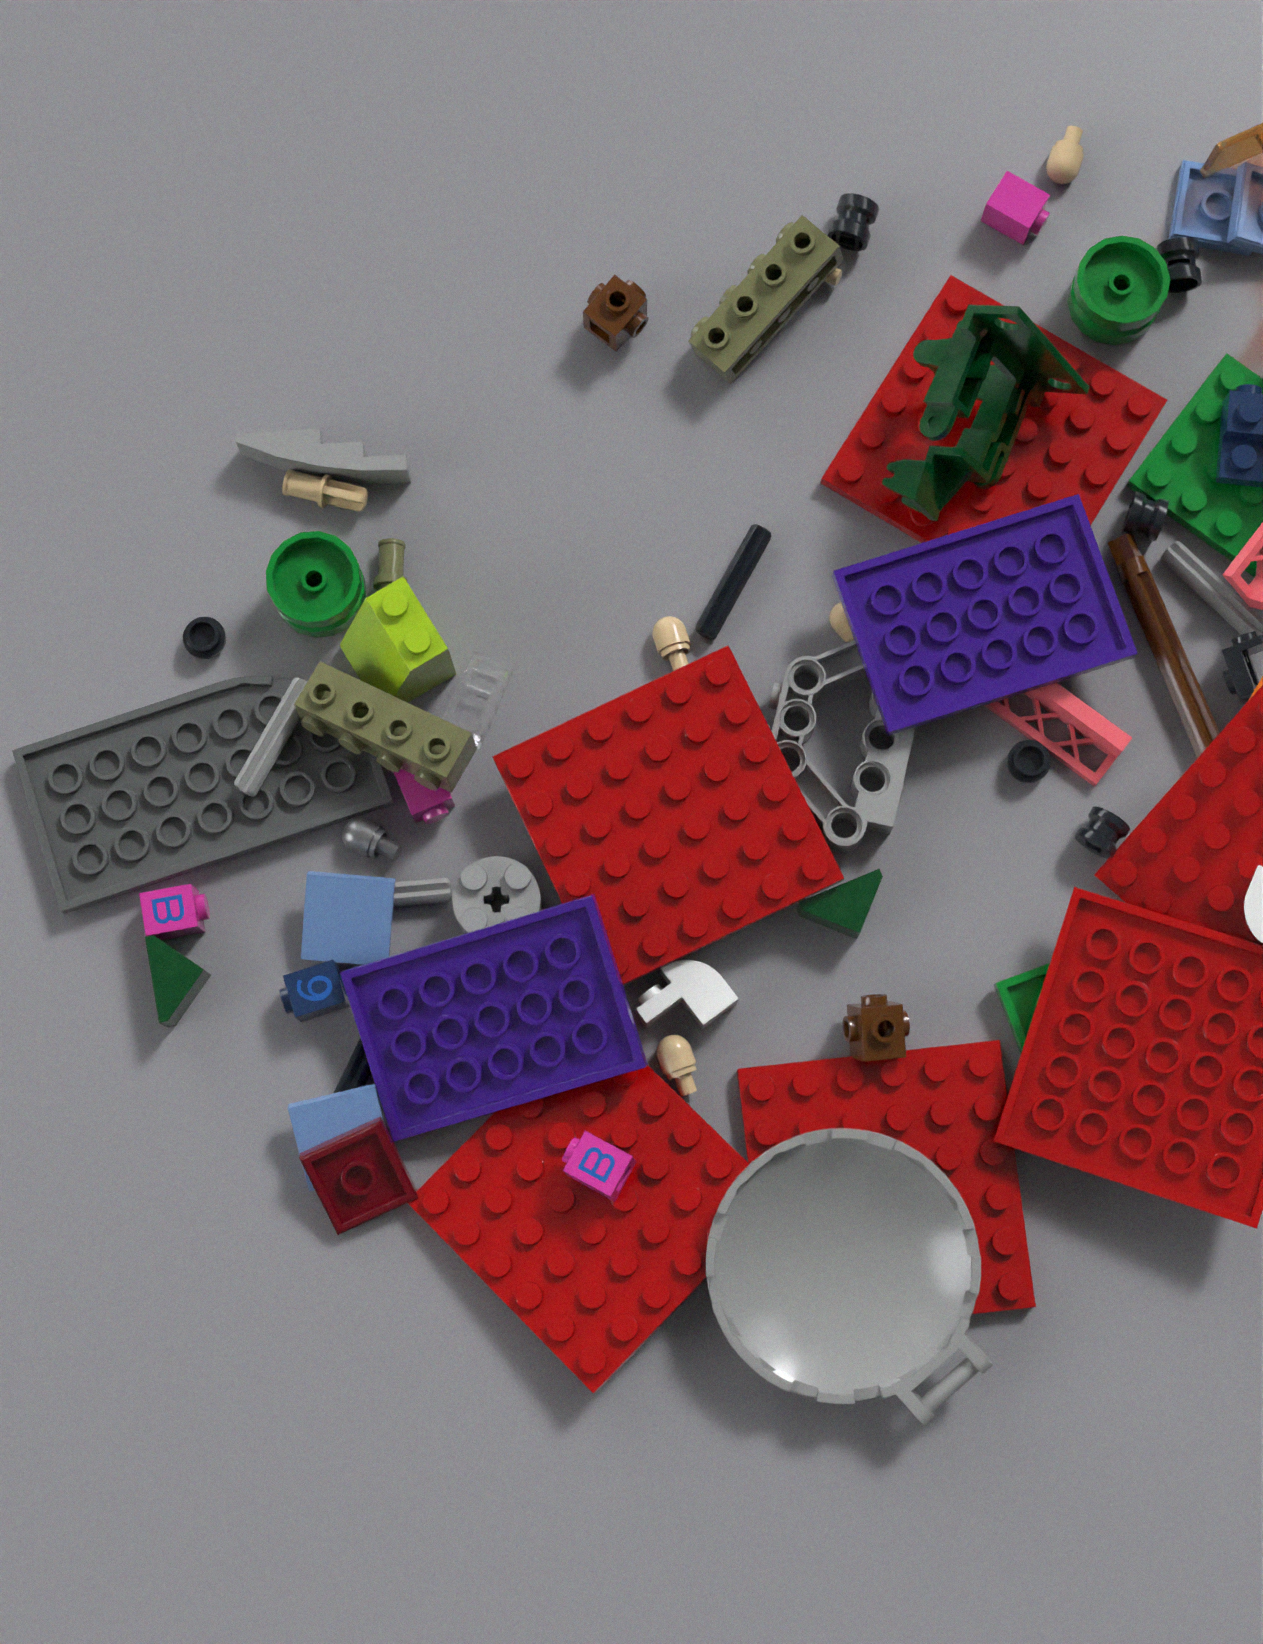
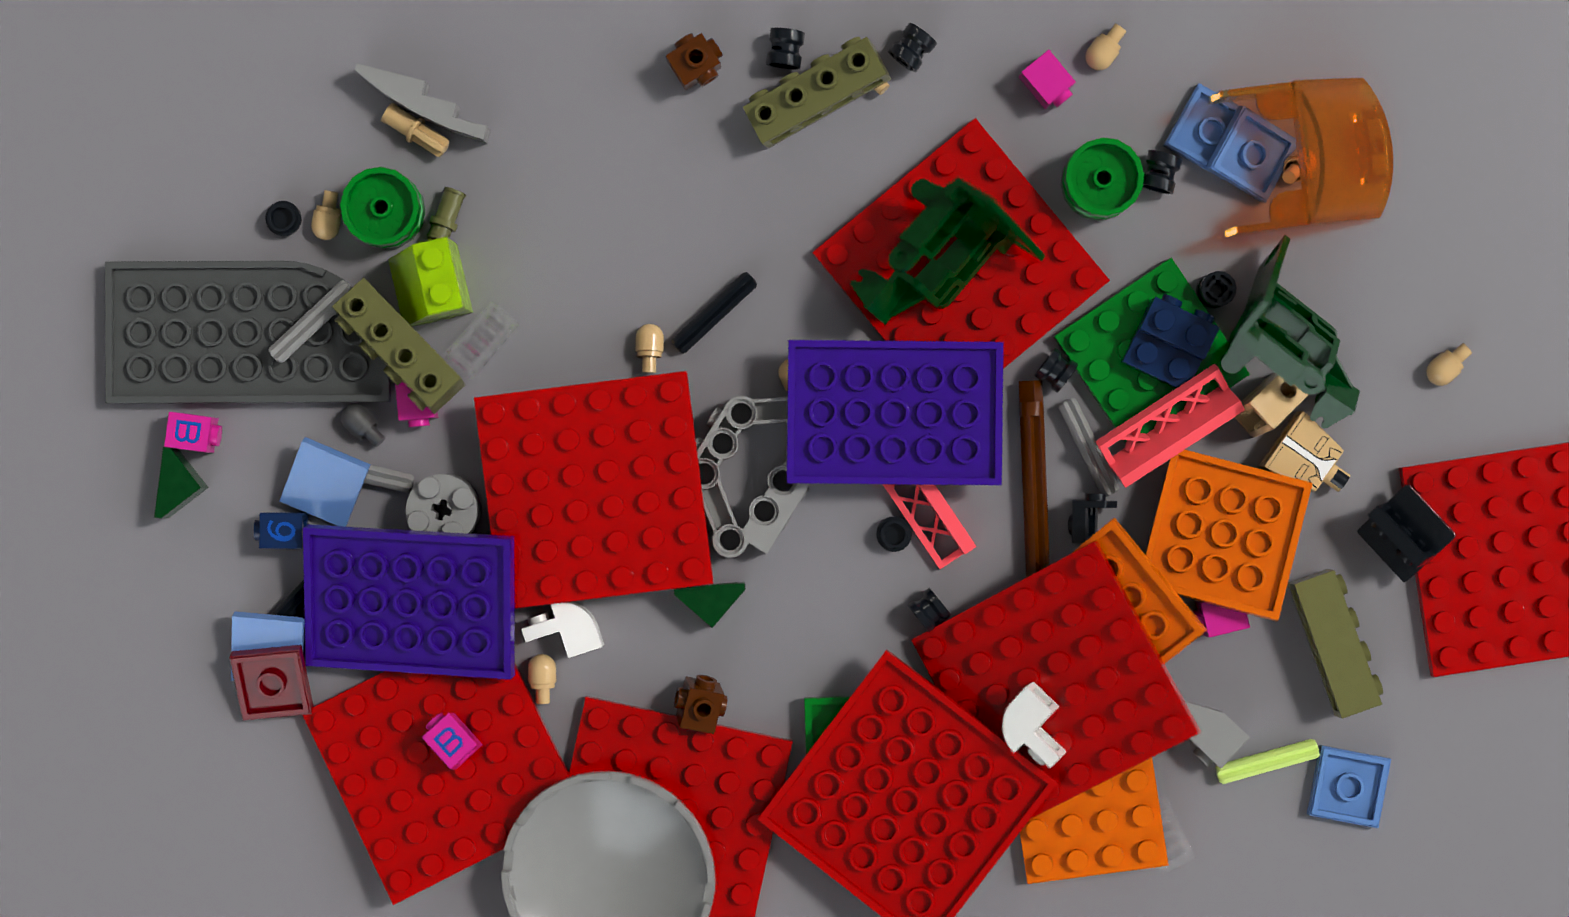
camera: 15 degrees right, 10 degrees up
(254, 619) = (326, 217): none -> tan cylinder
(712, 268) = (785, 48): none -> black wheel

